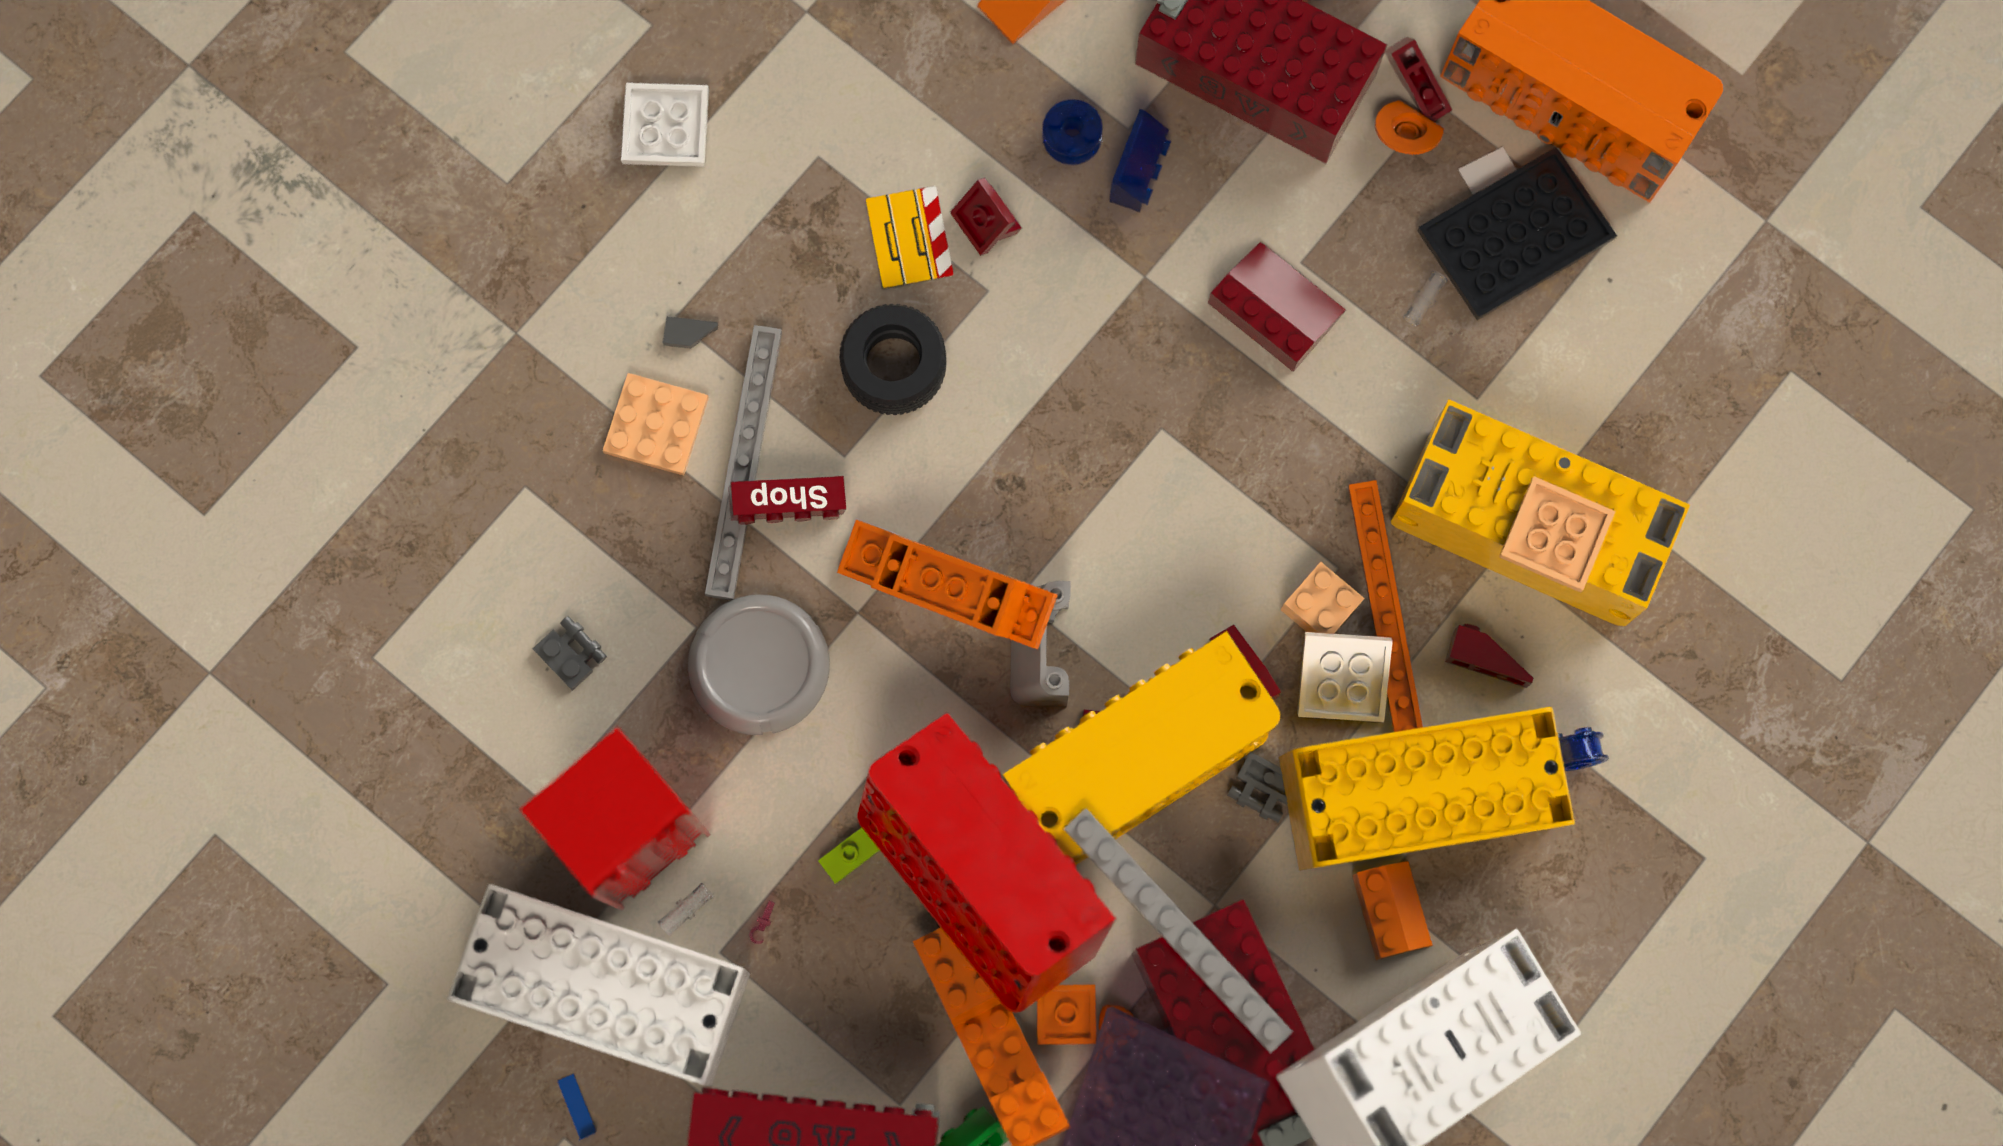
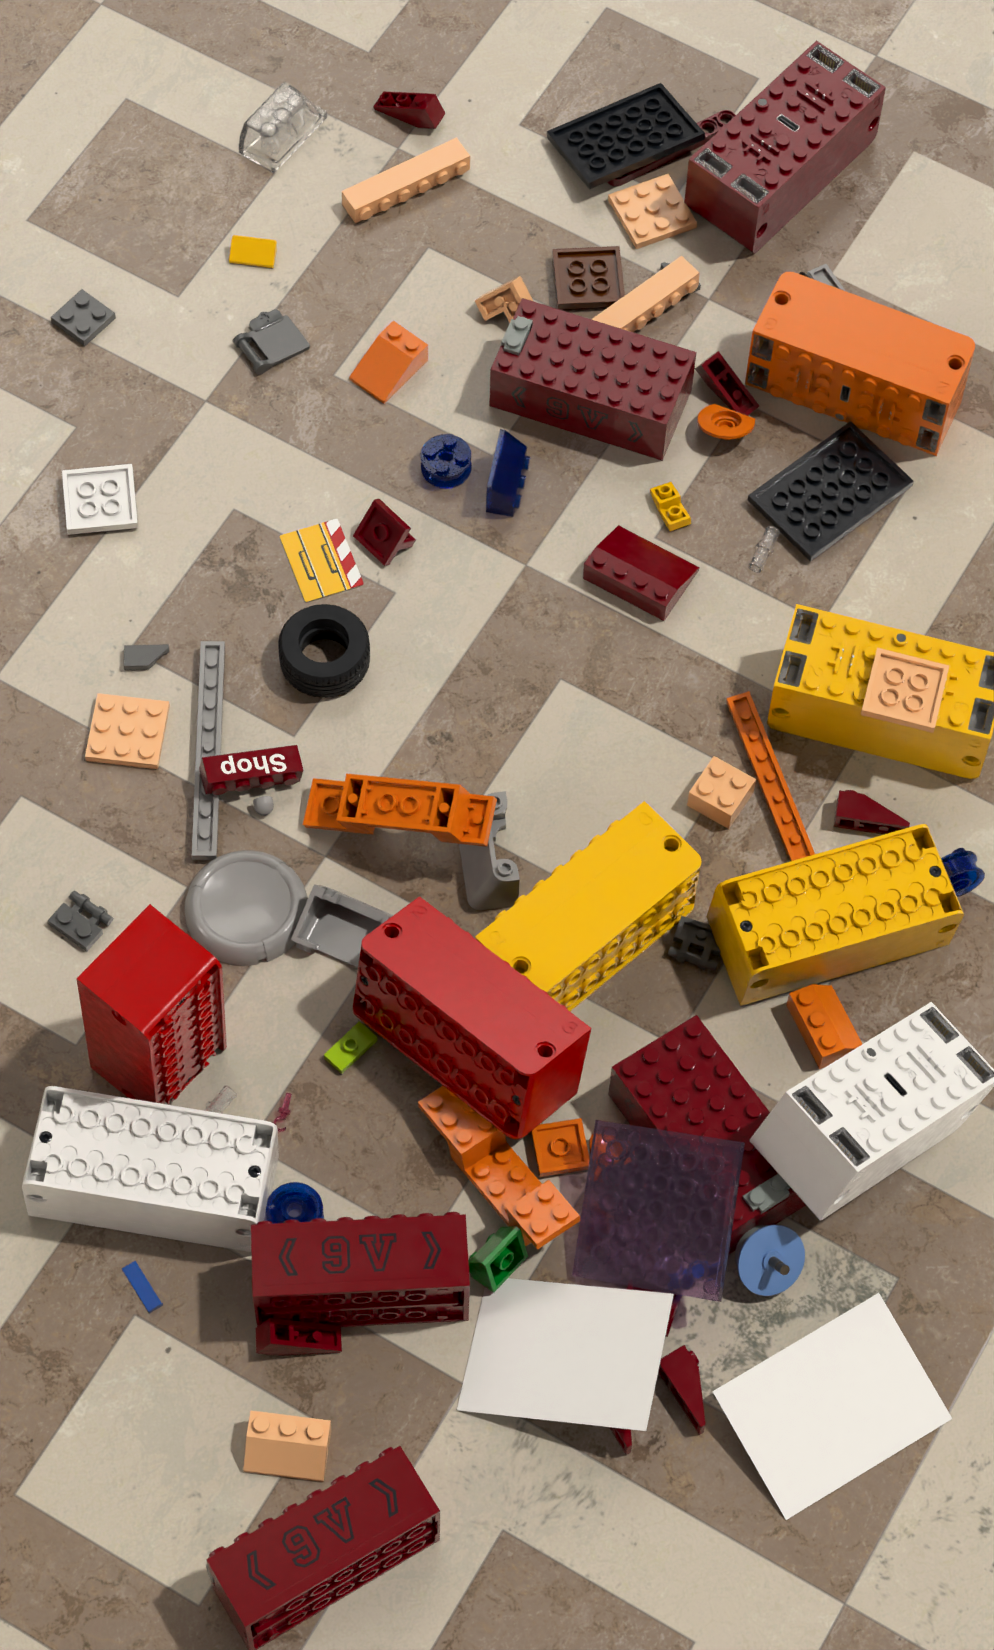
camera: 10 degrees left, 15 degrees down
(736, 1050) = (294, 1196): none -> clear blue wheel
(796, 542) = (263, 805): none -> light grey hinge
(867, 707) = (336, 924): none -> light grey windscreen
(1178, 930) = (645, 1039): light grey plate -> none
(1324, 226) = (670, 506): none -> yellow slope
(1344, 677) = (748, 839): white plate -> none
(1487, 170) = (796, 447): white sticker -> none

